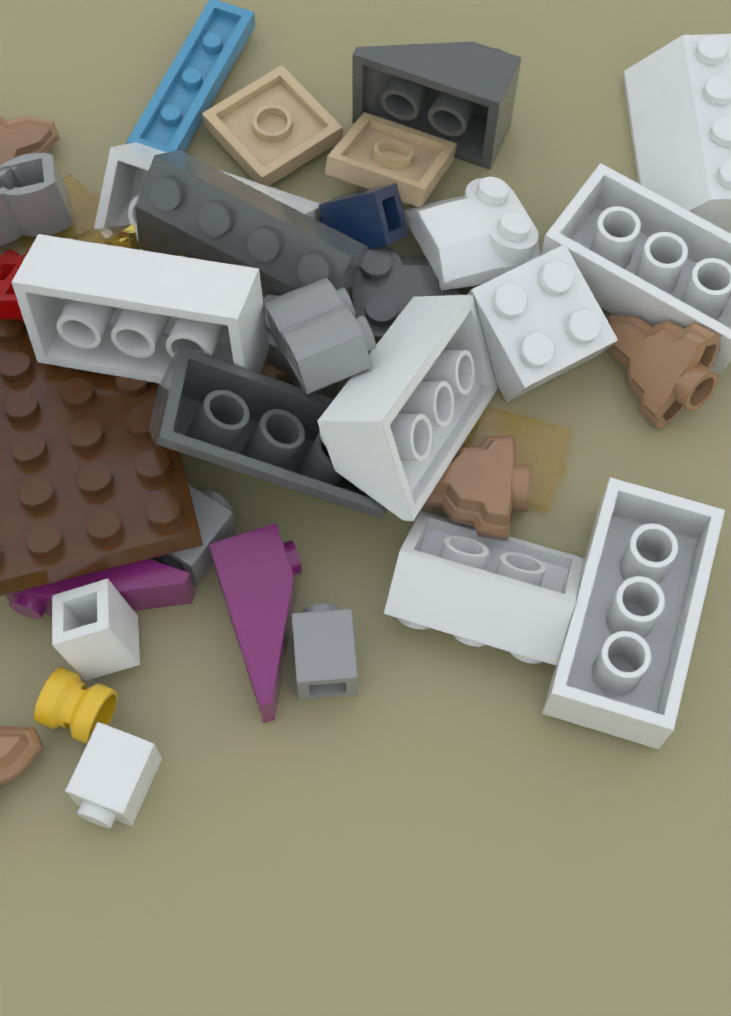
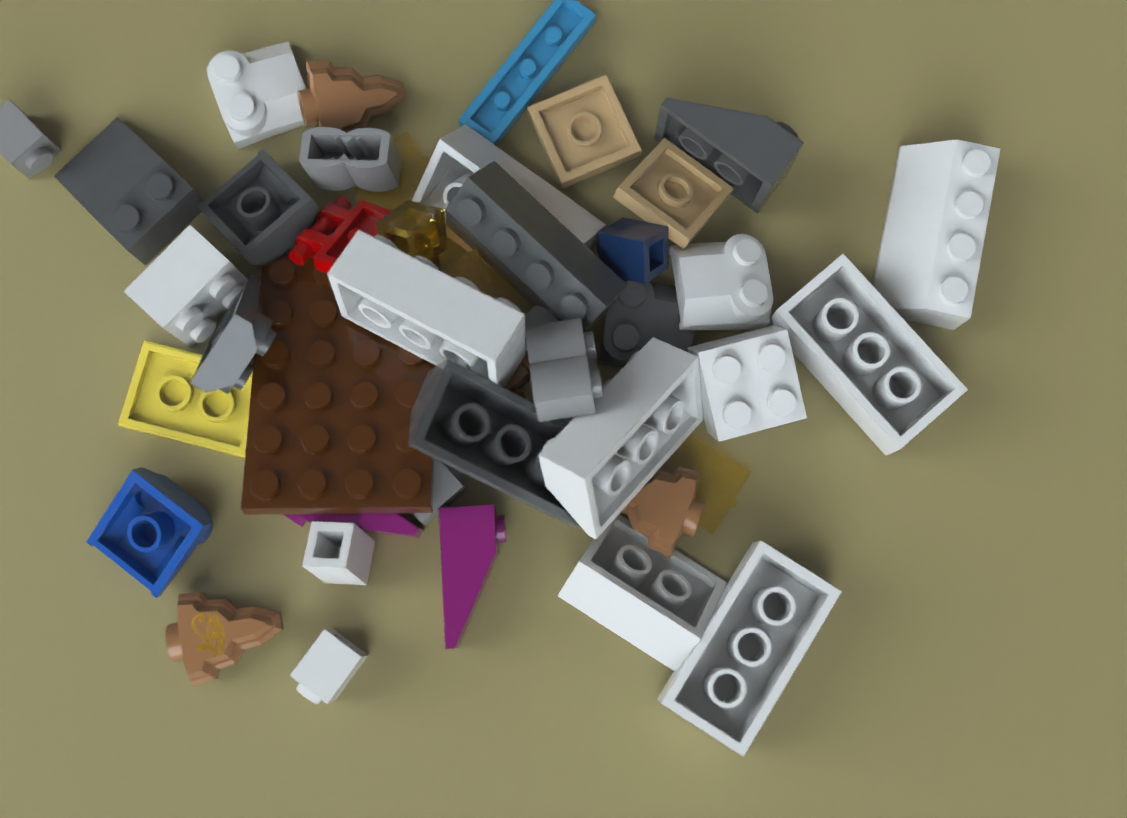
camera: 15 degrees right, 15 degrees up
(74, 705) = (312, 604): yellow wheel -> none
(324, 652) = (506, 611): light grey brick -> none
(666, 364) = (840, 439): medium nougat rock -> none

